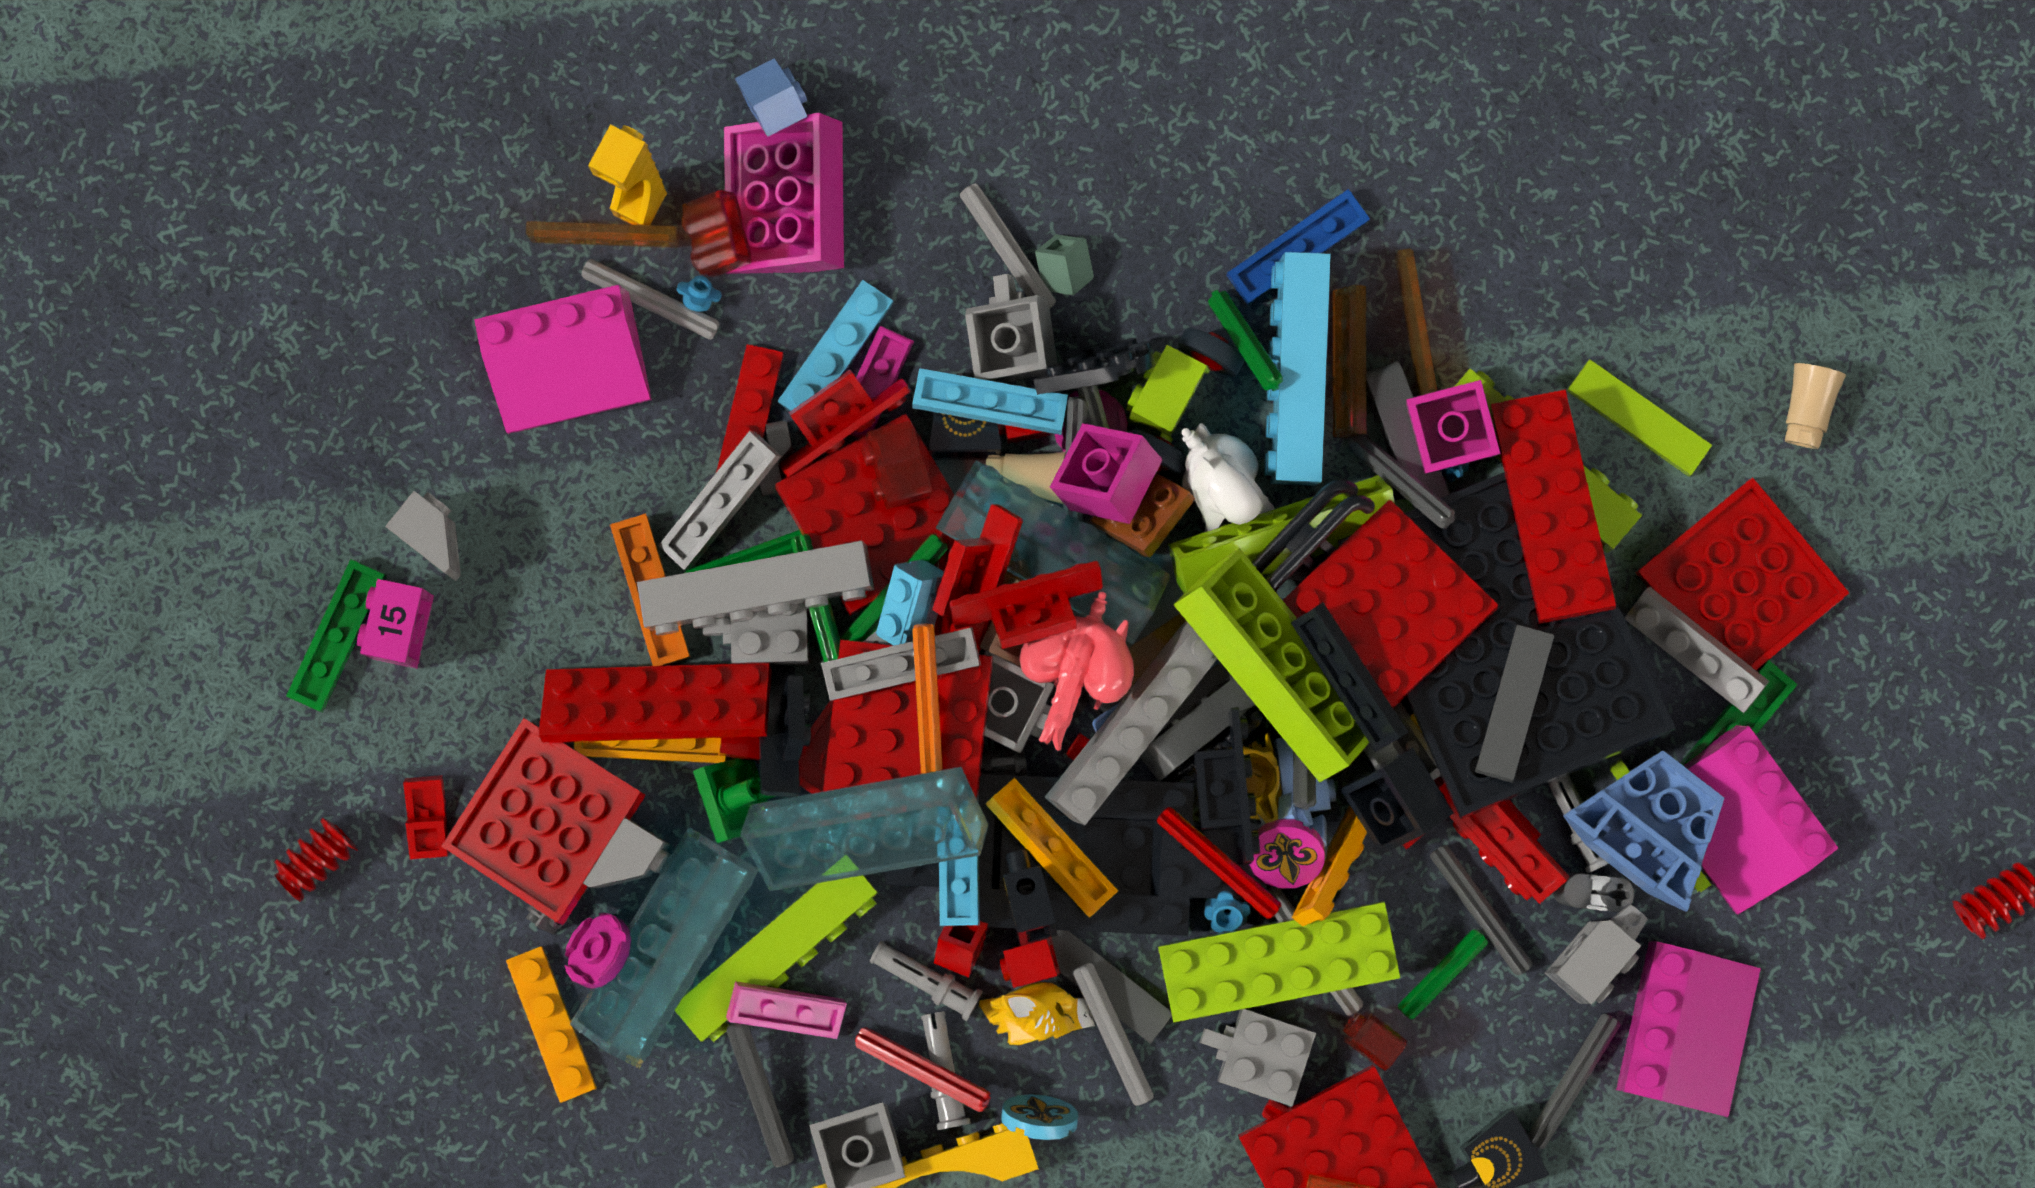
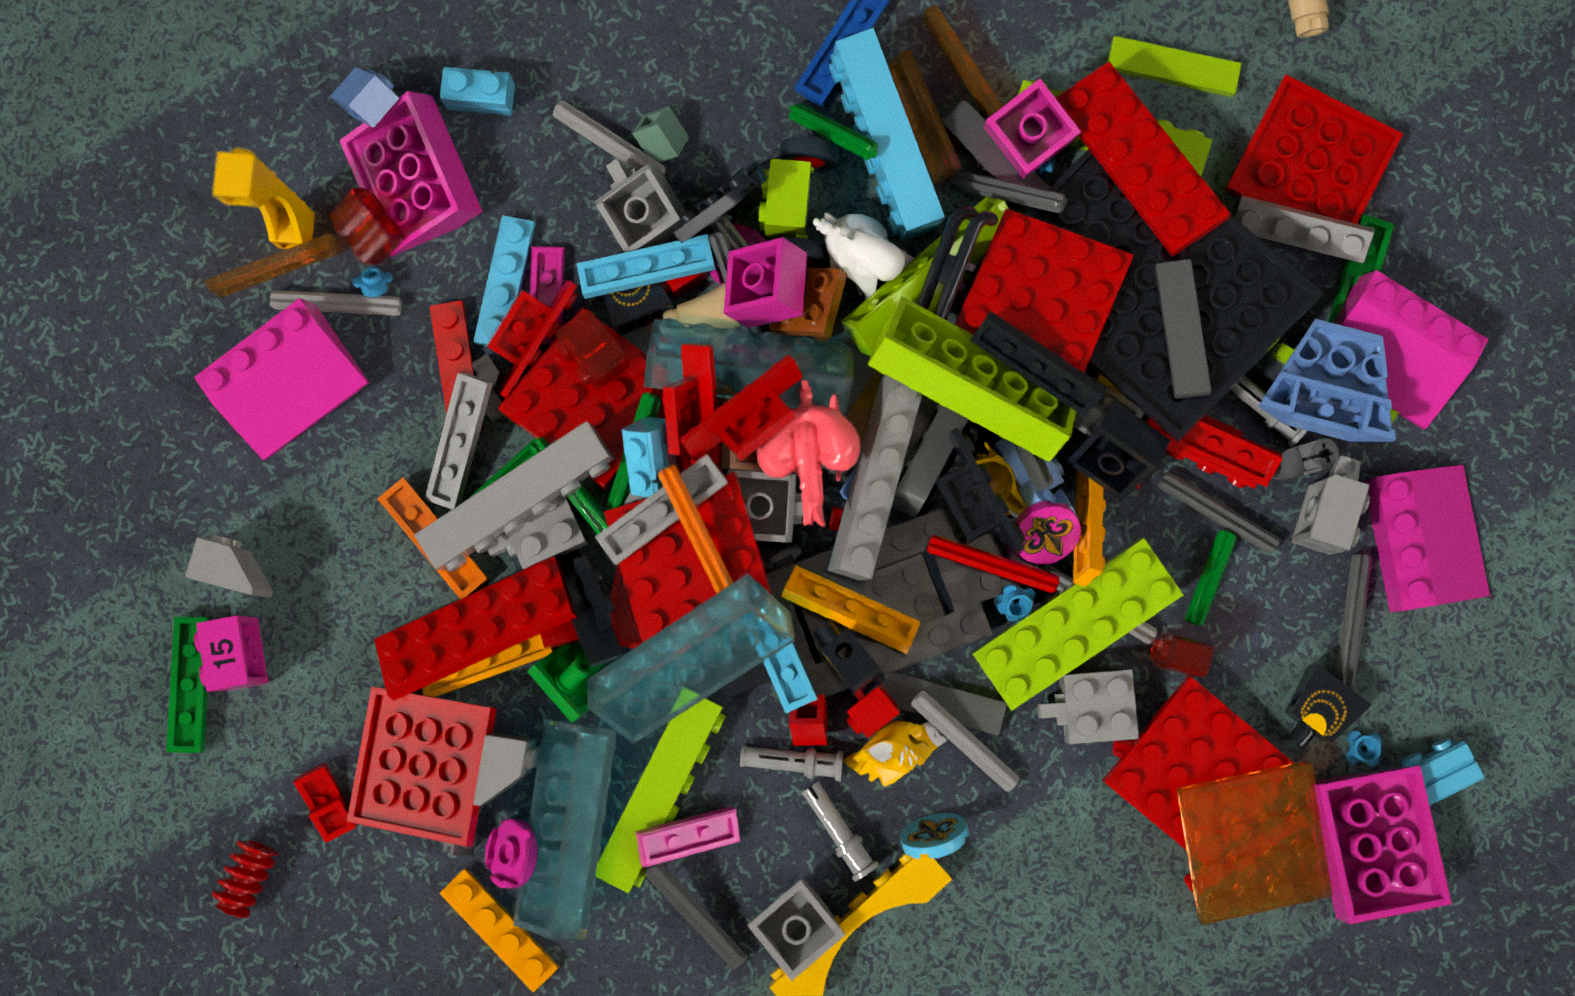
camera: 15 degrees left, 0 degrees up
(891, 137) = (477, 91): none -> medium azure brick
(922, 1069) = (821, 837): axle -> none

